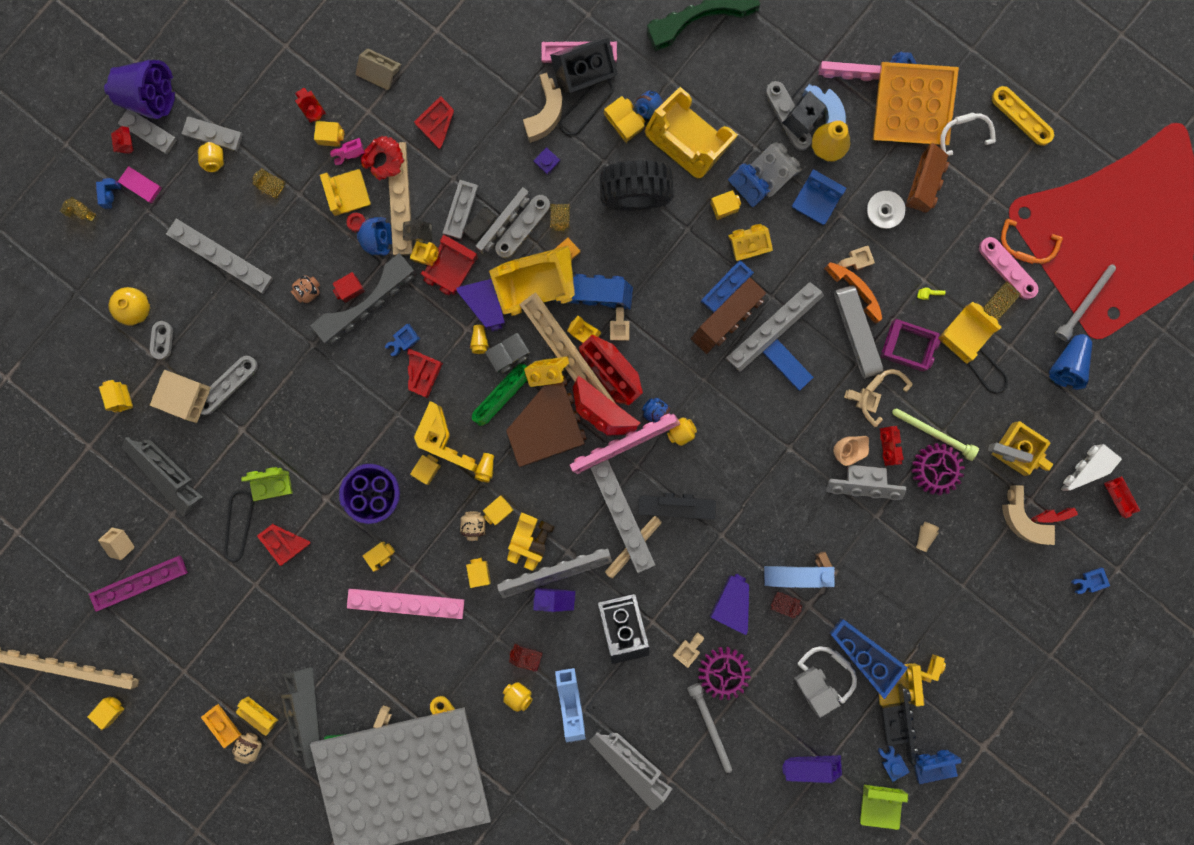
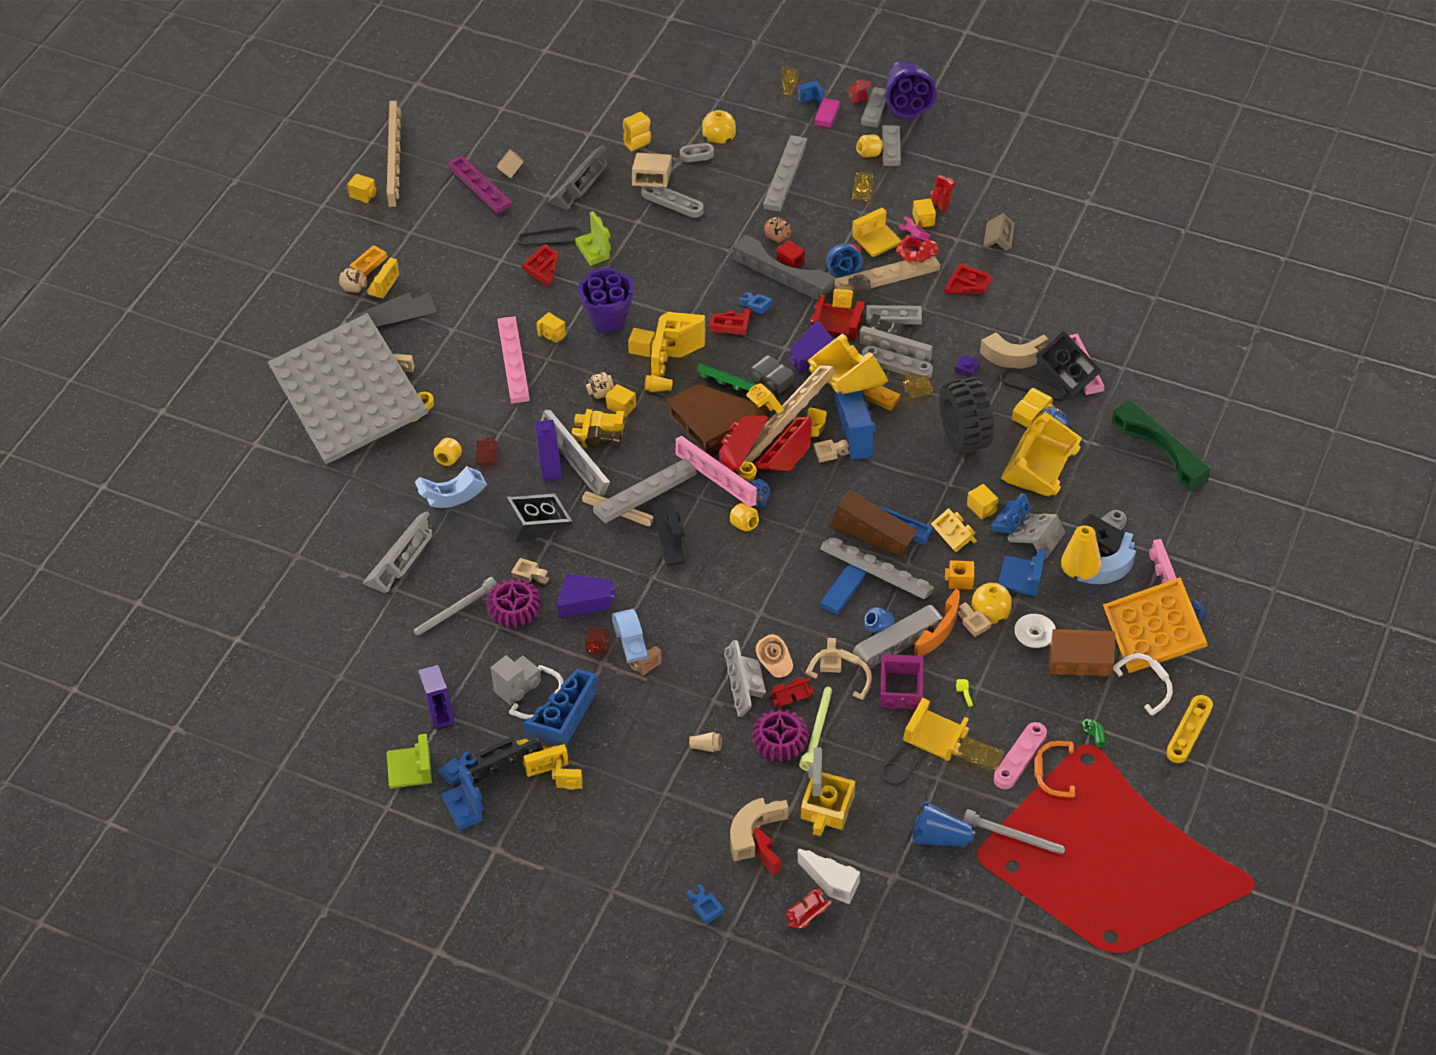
camera: 75 degrees right, 35 degrees down
(478, 573) = (557, 399): yellow brick -> none
(479, 340) = (777, 352): yellow cone -> none
(637, 410) = (747, 471): none -> yellow cone
(809, 247) = (960, 575): none -> light orange brick
(841, 237) = (992, 601): none -> yellow cylinder
(841, 344) = (878, 619): none -> blue head
(1002, 194) = (1096, 730): none -> green arm

